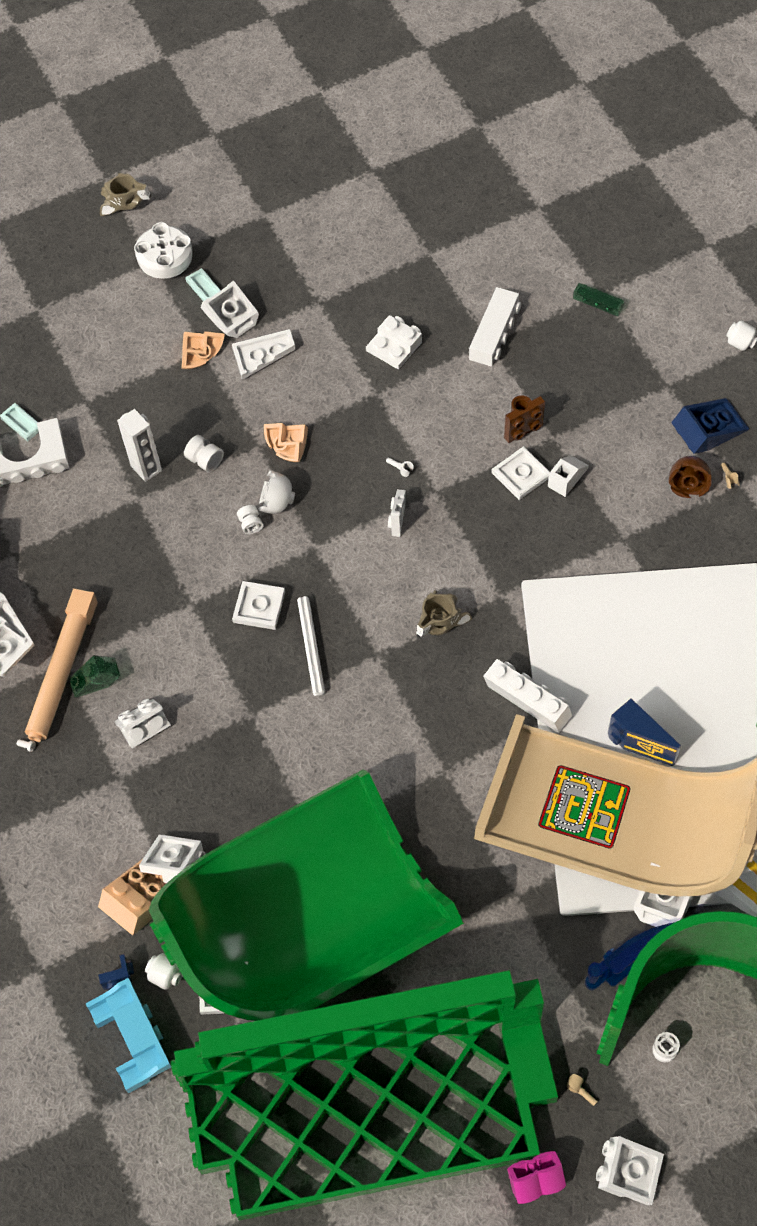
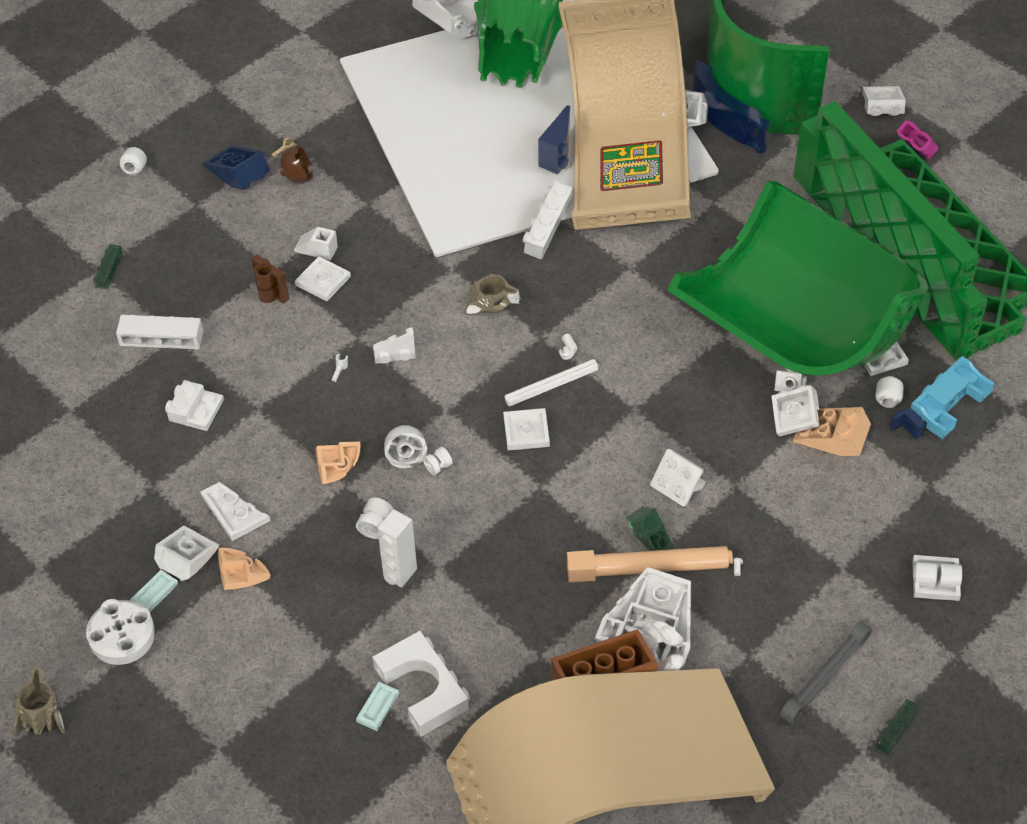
camera: 110 degrees left, 10 degrees down
(348, 675) = (569, 348): none -> white arm

